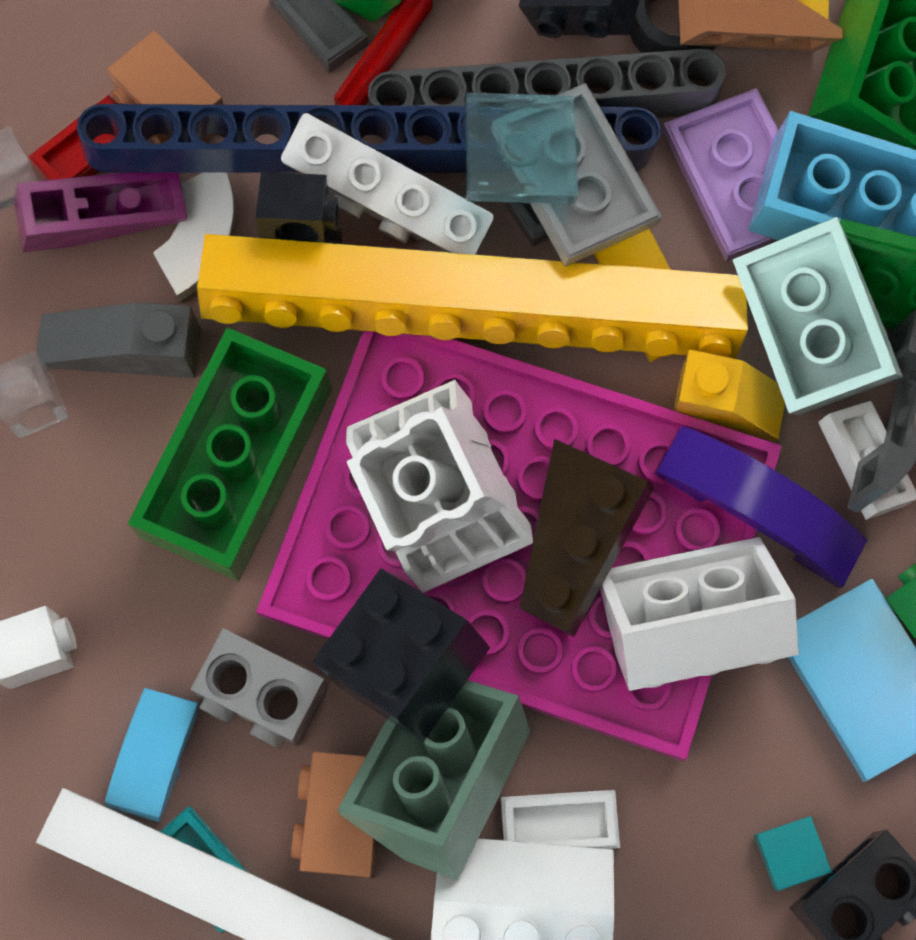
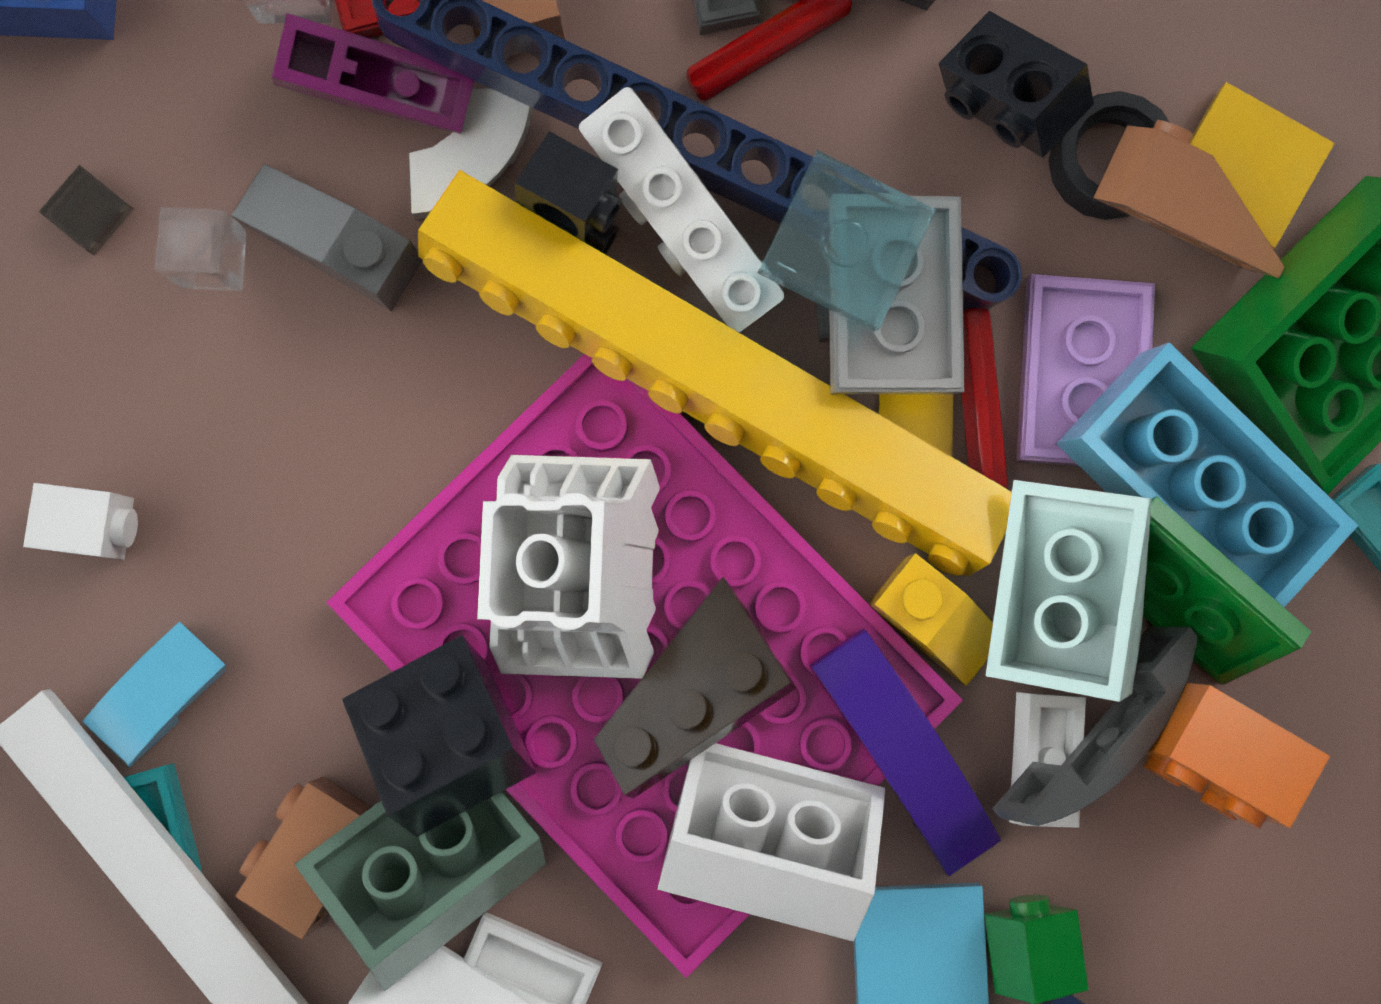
camera: 25 degrees right, 10 degrees up
(231, 454) = (377, 424): green brick -> none
(266, 677) = (304, 670): light grey brick -> none
(615, 73) = (951, 173): dark grey beam -> none
(676, 227) = (981, 398): none -> red axle

